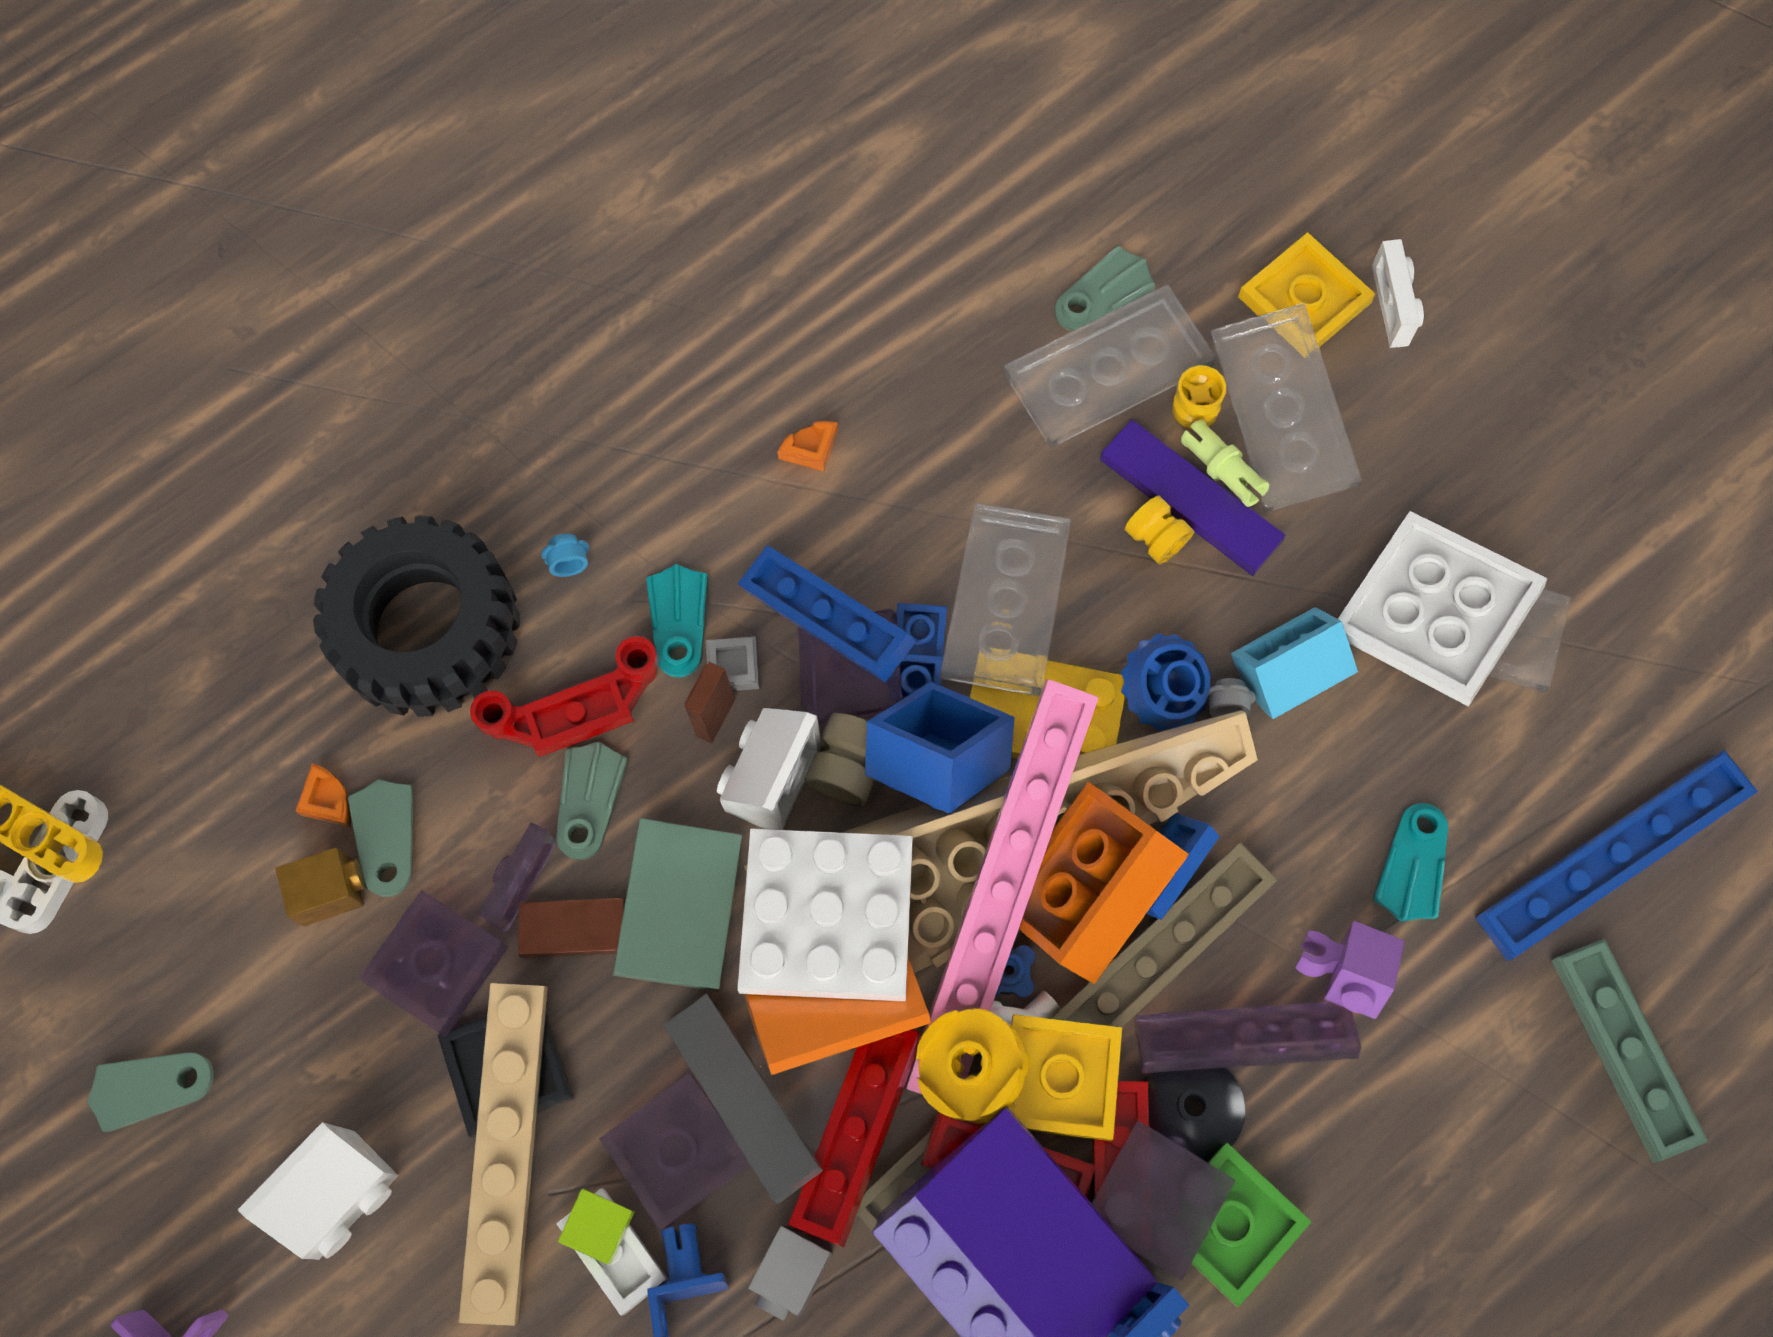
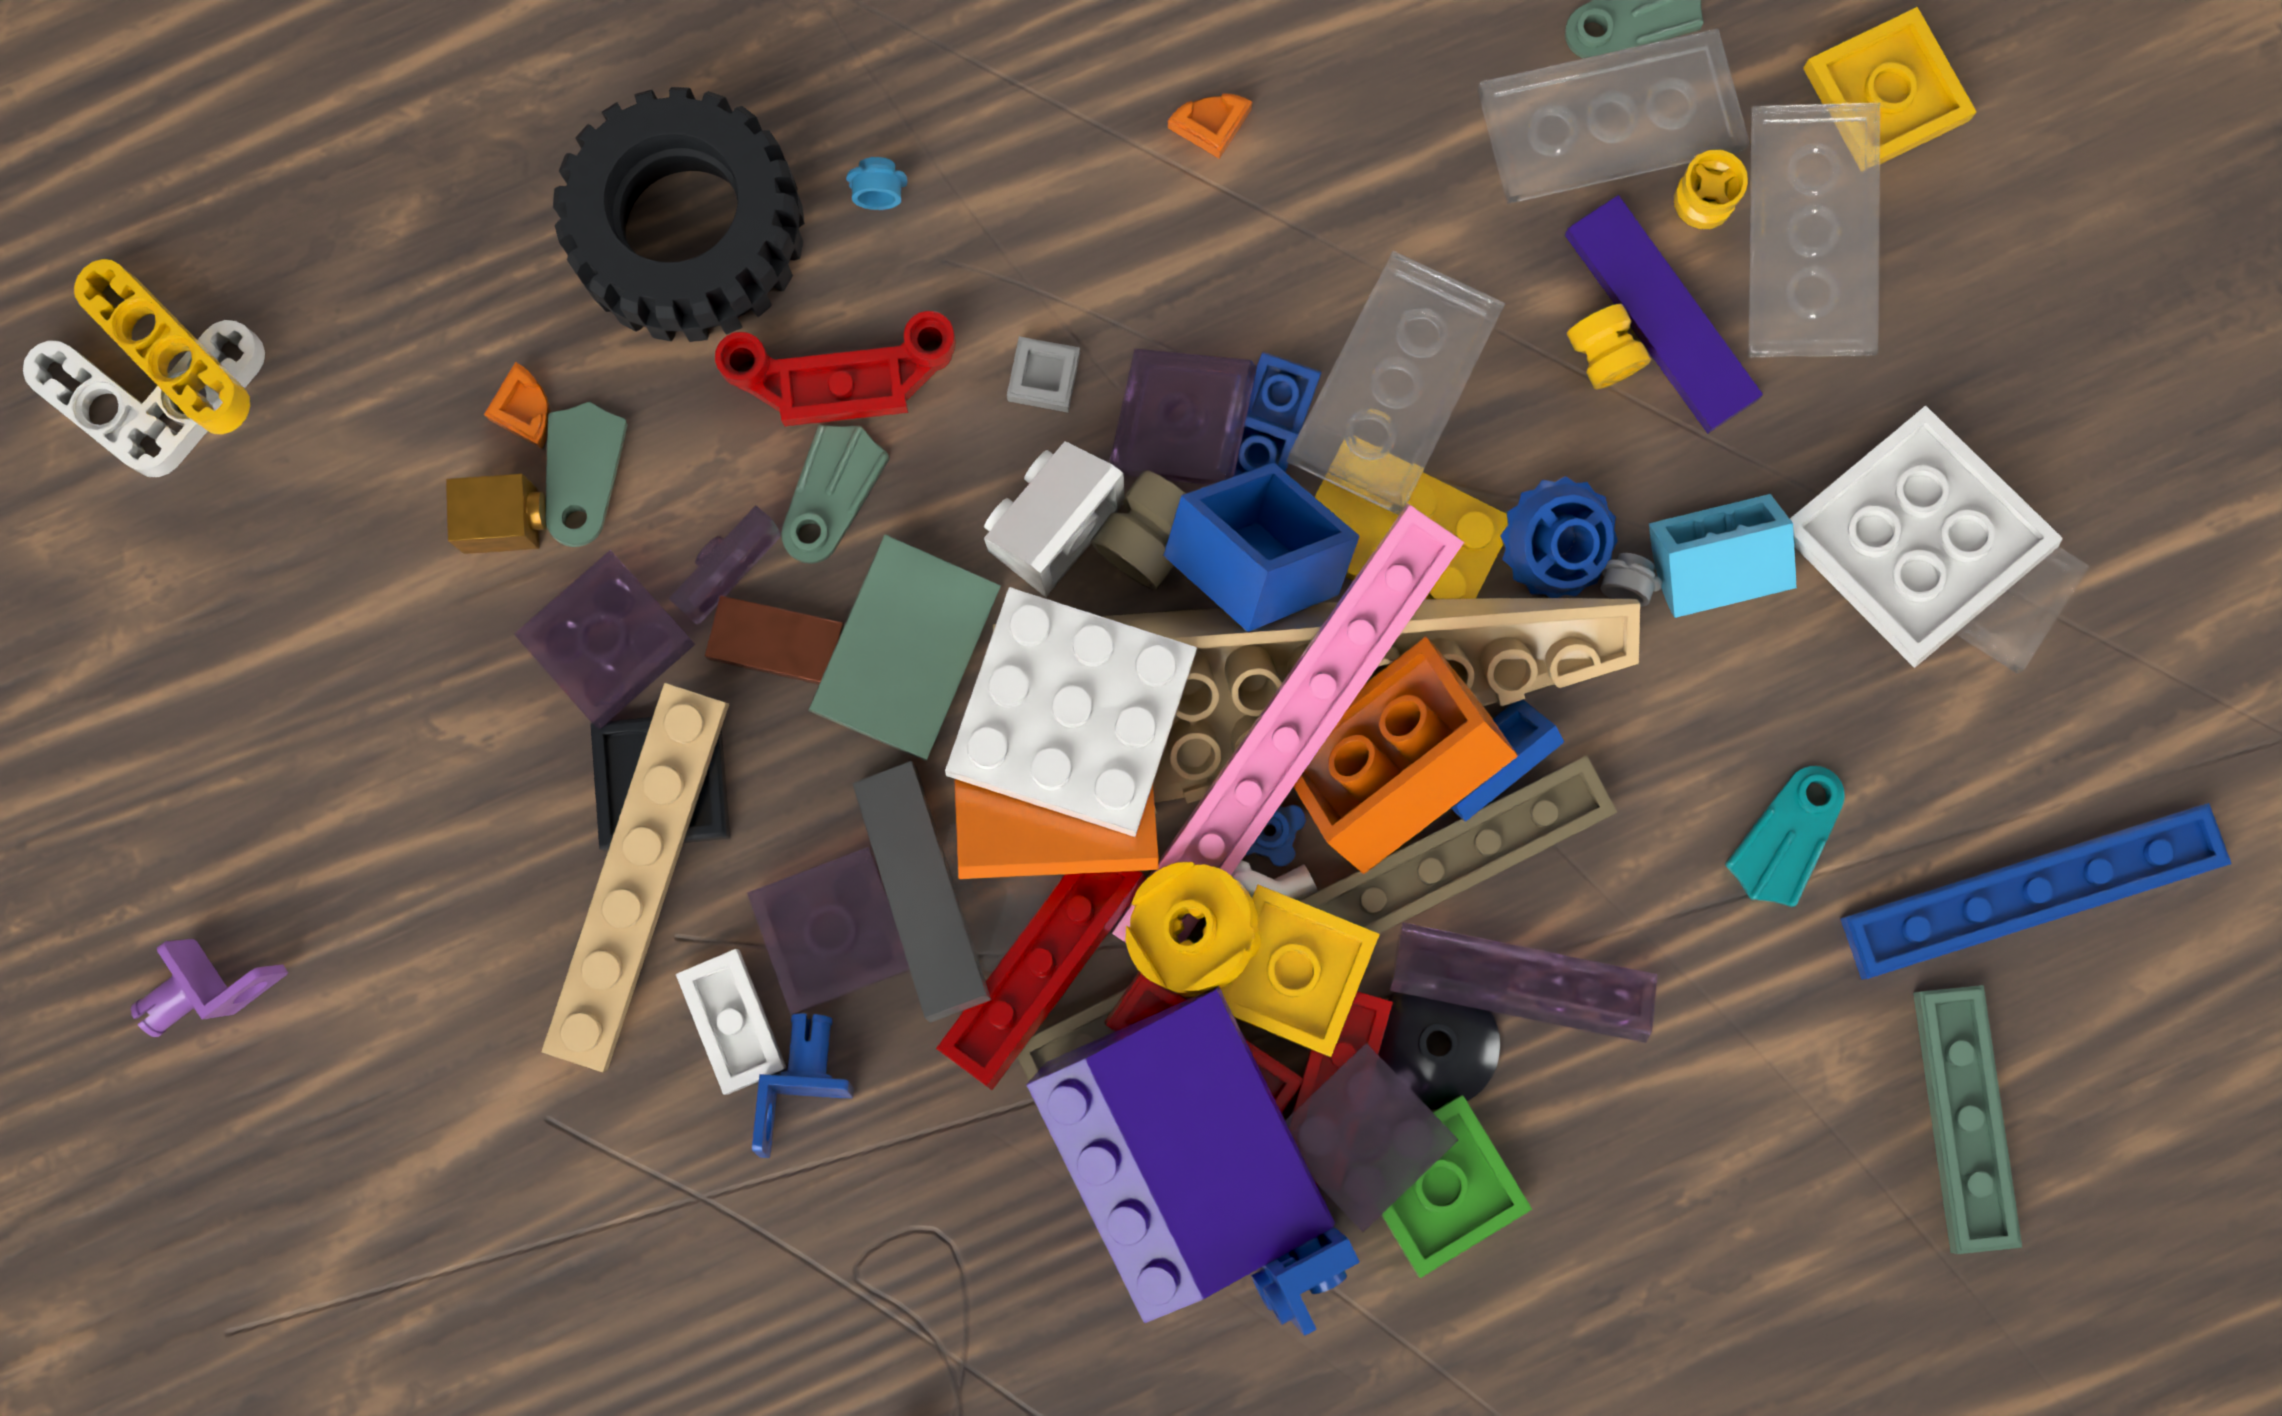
camera: 15 degrees right, 10 degrees up
(146, 1088) = (247, 693): sand green piece -> none
(320, 1192) = (420, 867): white slope -> none
(596, 1226) = (719, 990): lime tile -> none
(678, 617) = (993, 296): teal piece -> none
(709, 701) = (1002, 416): copper tile -> none
(788, 1274) = (923, 1101): light grey brick -> none
(827, 613) = (1171, 344): blue plate -> none
(1224, 463) = (1716, 282): yellowish green pin -> none
(1360, 967) = (1680, 940): medium lavender brick -> none
(1394, 282) = (2007, 97): white plate -> none

